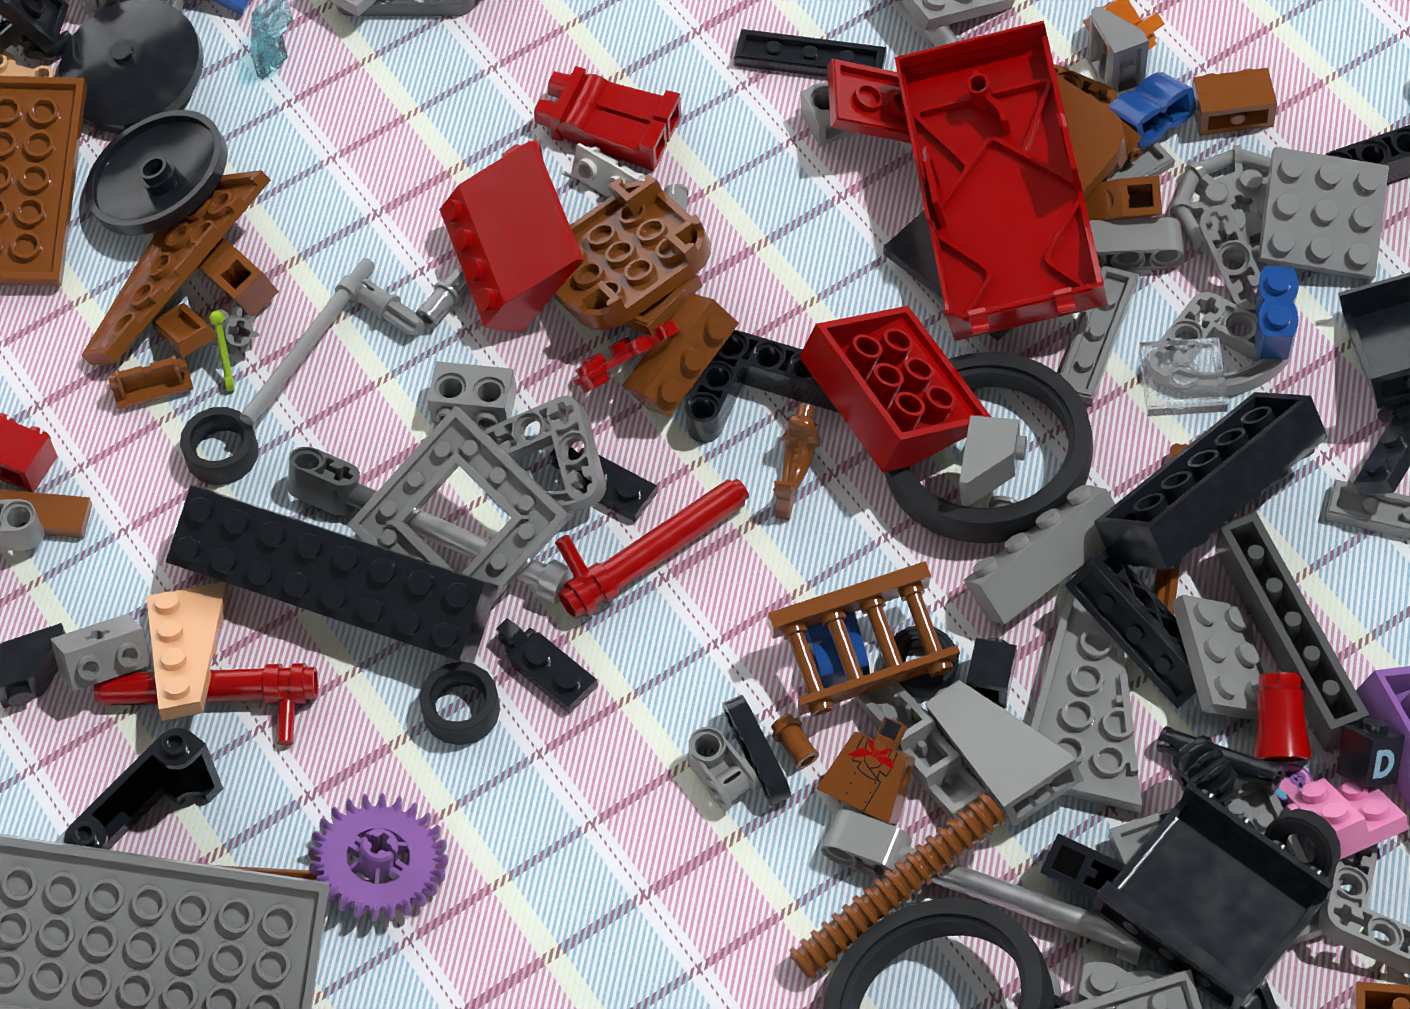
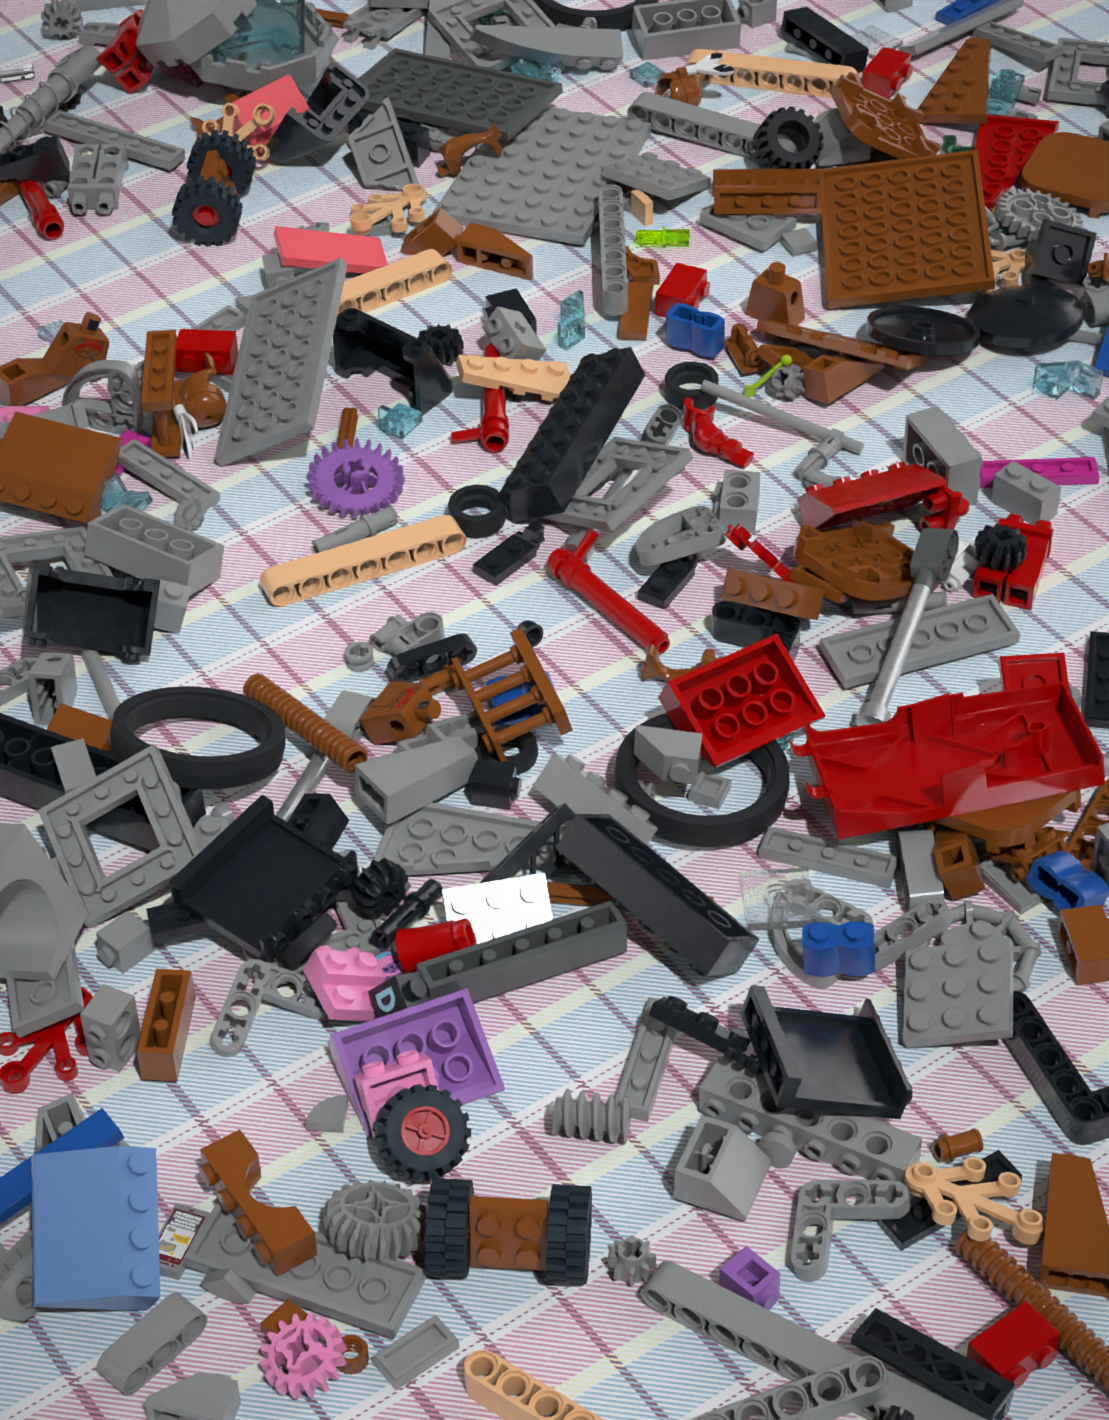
camera: 85 degrees right, 15 degrees down
(40, 581) = (572, 325): none -> clear light blue slope
(54, 335) = (776, 296): none -> dark orange torso
(82, 758) = (444, 342): none -> black gear
(114, 428) = (695, 330): none -> blue brick
(240, 811) = (398, 420): none -> clear light blue bracket
(326, 429) = (709, 437): none -> red piece
(426, 164) = (941, 448): none -> light grey brick
(435, 86) = (1057, 470): none -> dark pink tile
(477, 843) = (365, 527): none -> light grey pin
(492, 93) = (1025, 493): none -> light grey brick
(553, 844) = (362, 560): none -> light nougat beam
(619, 114) = (1000, 547): none -> black gear
(667, 177) = (929, 563): none -> piece
(698, 805) = (392, 623): none -> light grey pin
(705, 640) = (532, 631): none -> black hinge
(744, 829) = (362, 663): none -> light grey bush
(745, 223) = (940, 637): none -> light grey plate

